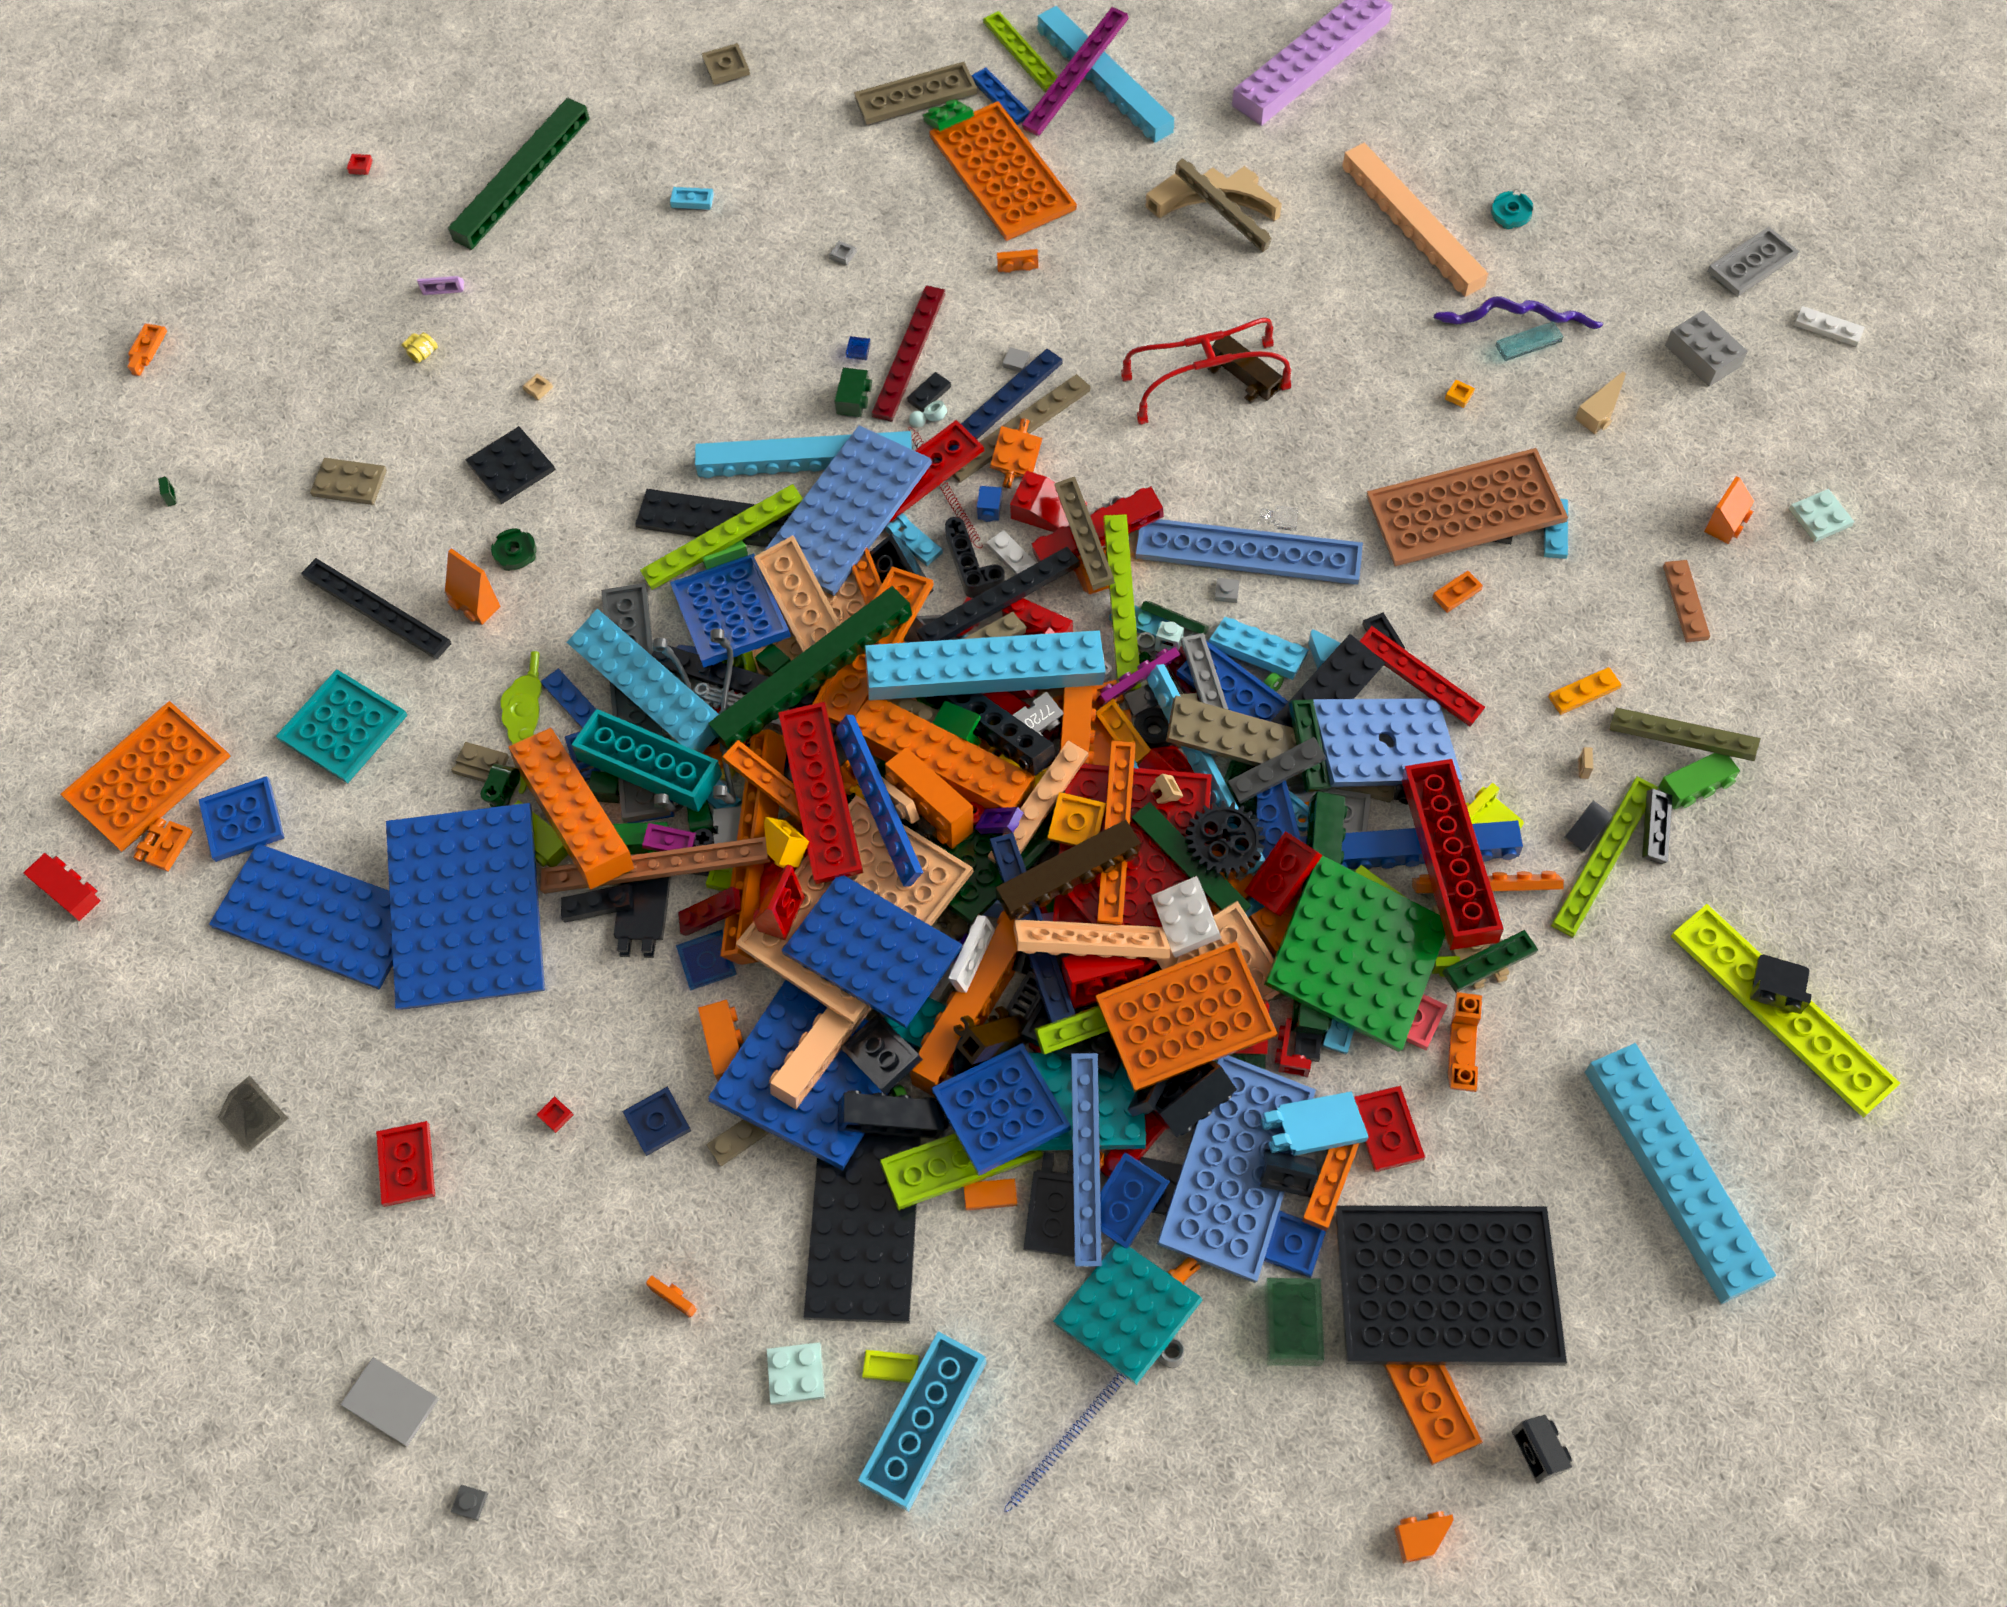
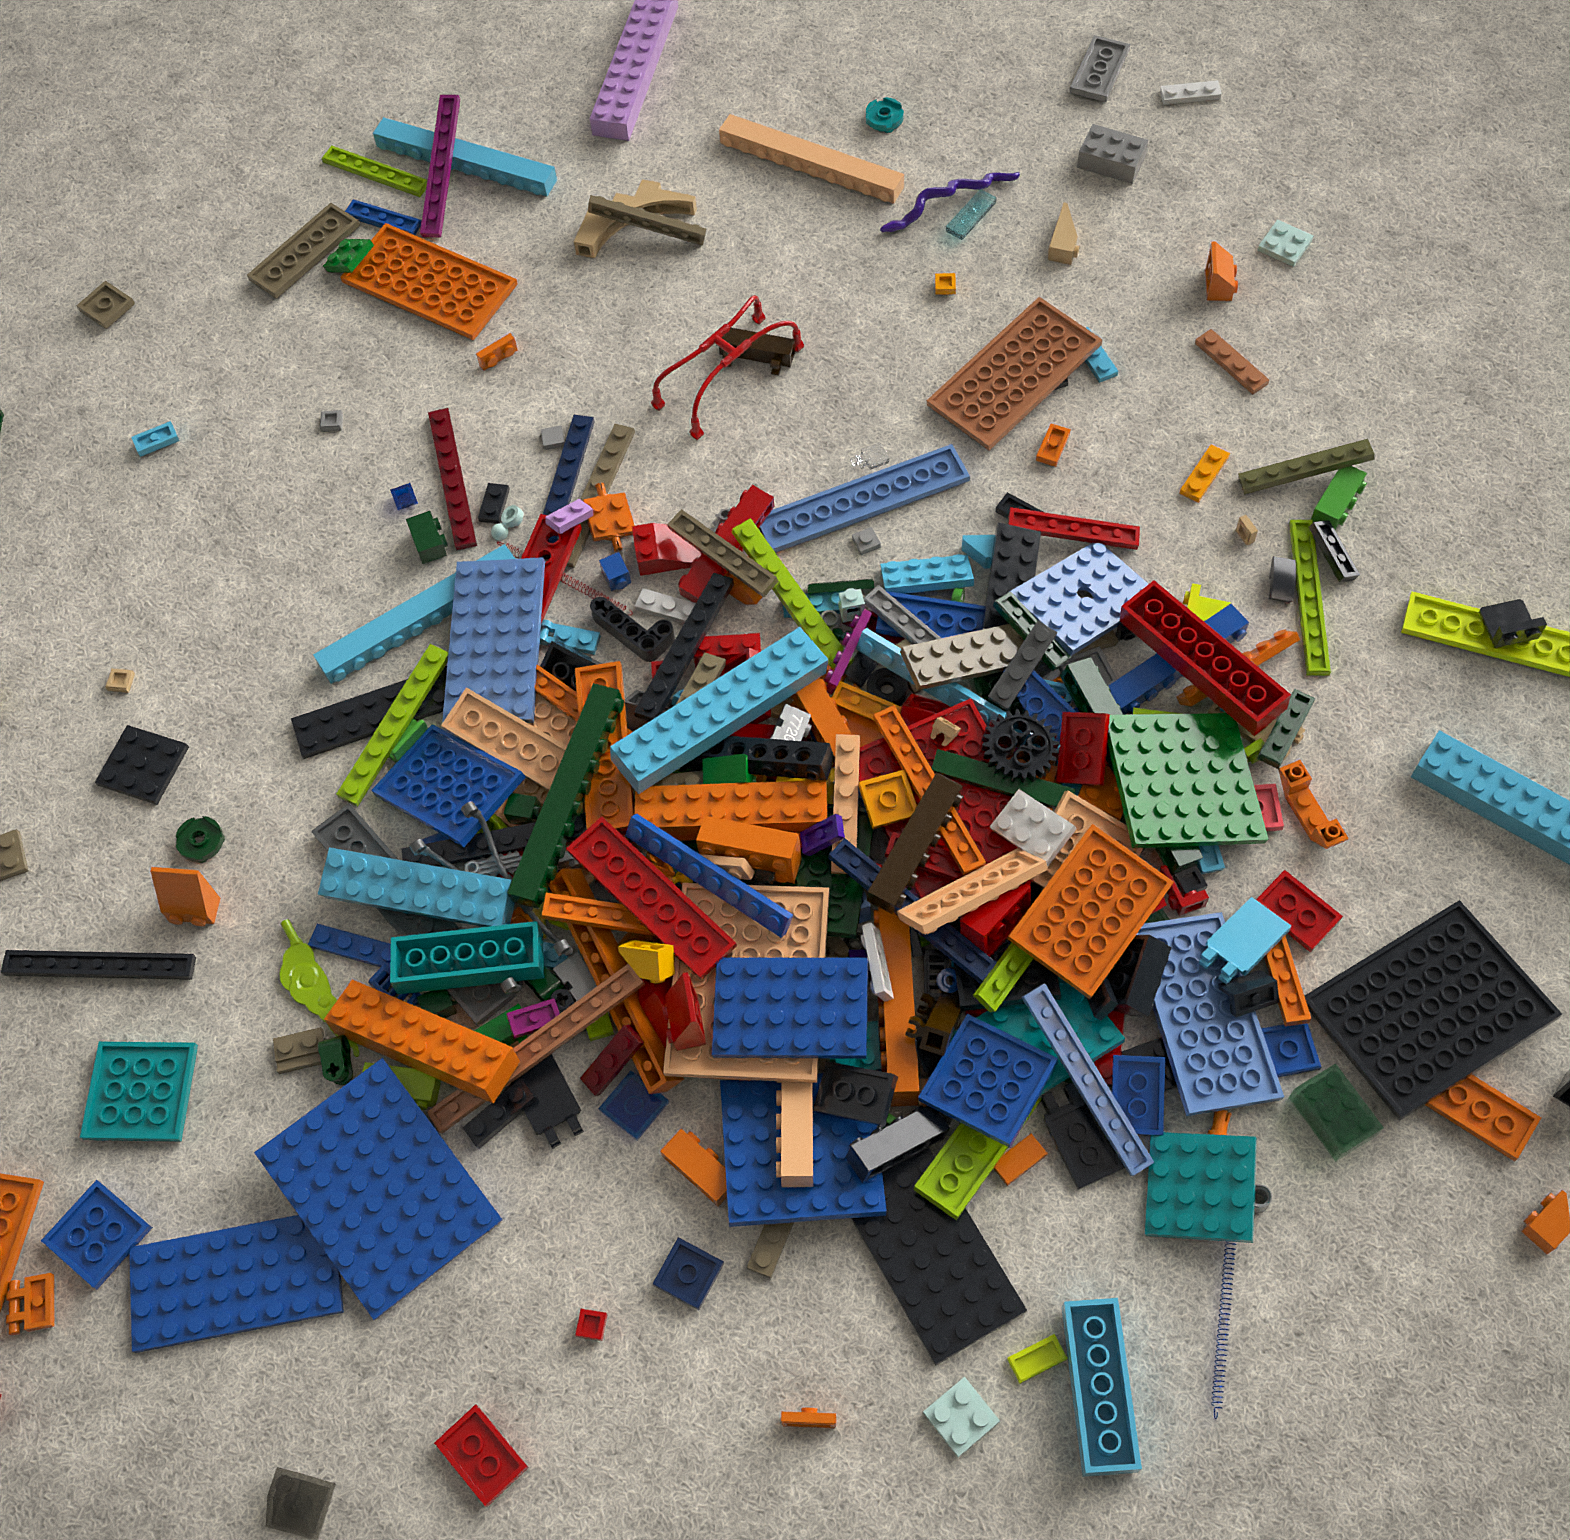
camera: 30 degrees left, 0 degrees up
(978, 434) = (569, 516): none -> lavender plate
(1024, 1003) = (941, 980): none -> blue plate

